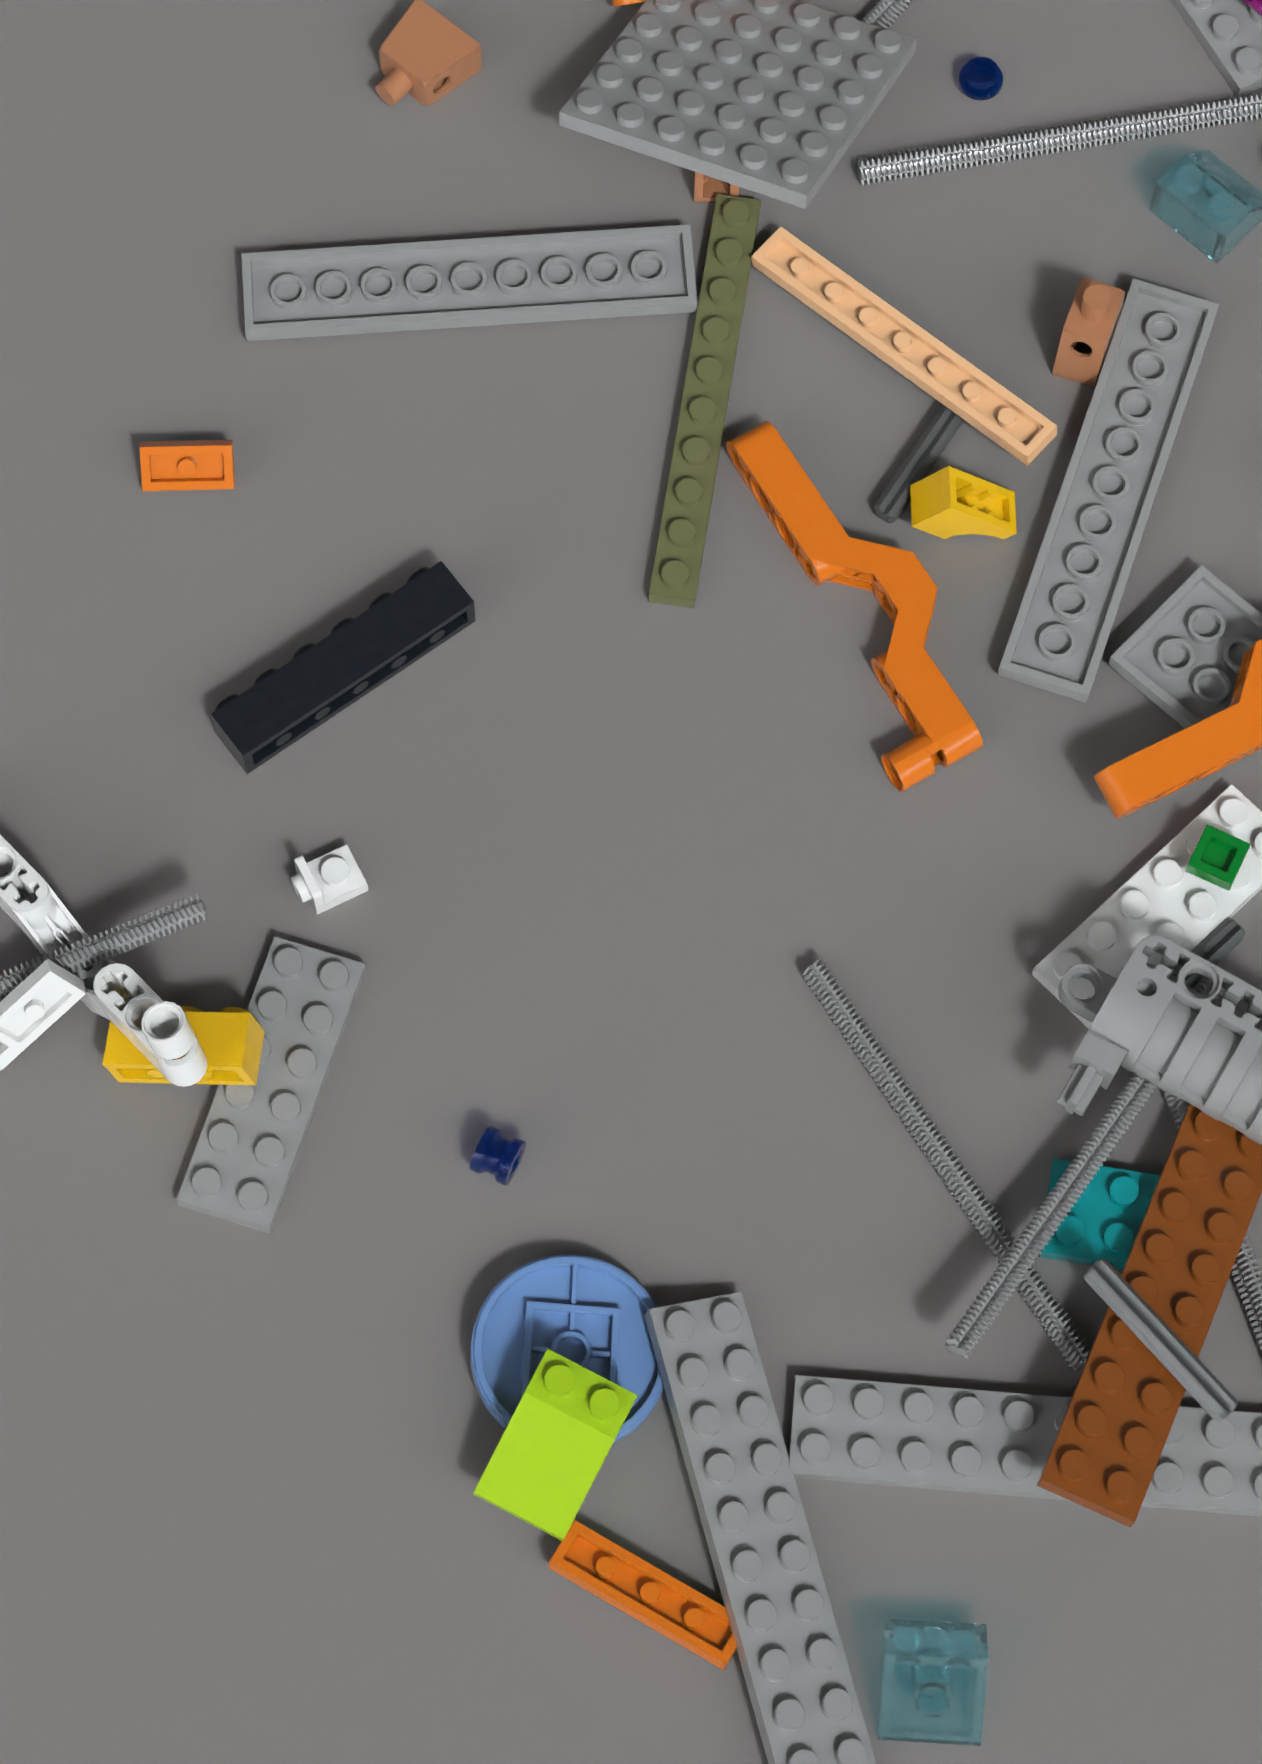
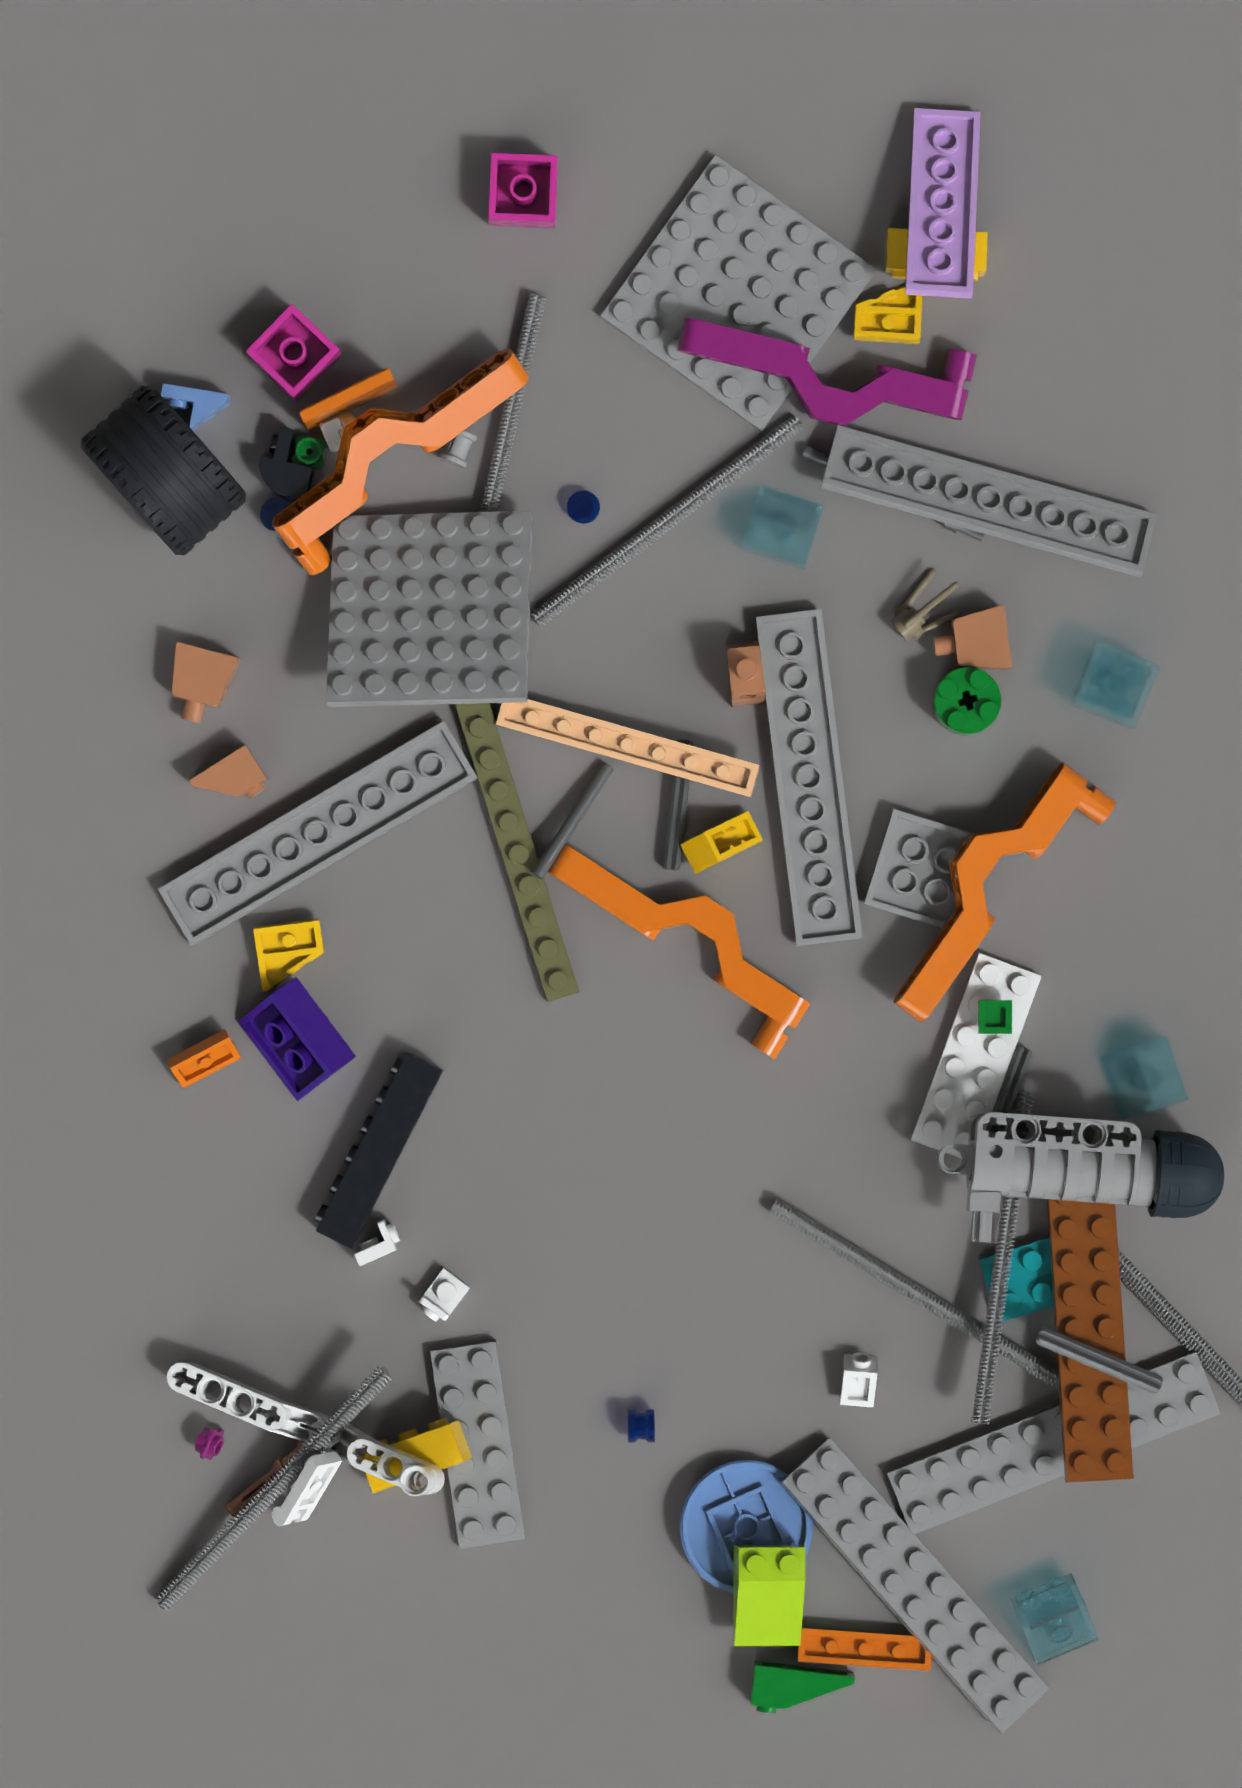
camera: 25 degrees left, 20 degrees up
(278, 782) = (373, 1249): none -> white bracket
(314, 493) = (296, 1039): none -> dark purple slope
(358, 391) = (286, 948): none -> yellow wing
(399, 173) = (234, 775): none -> nougat slope
(522, 1592) = (788, 1685): none -> green slope
(789, 403) = (572, 820): none -> dark grey bar
(816, 1236) = (859, 1380): none -> white bracket

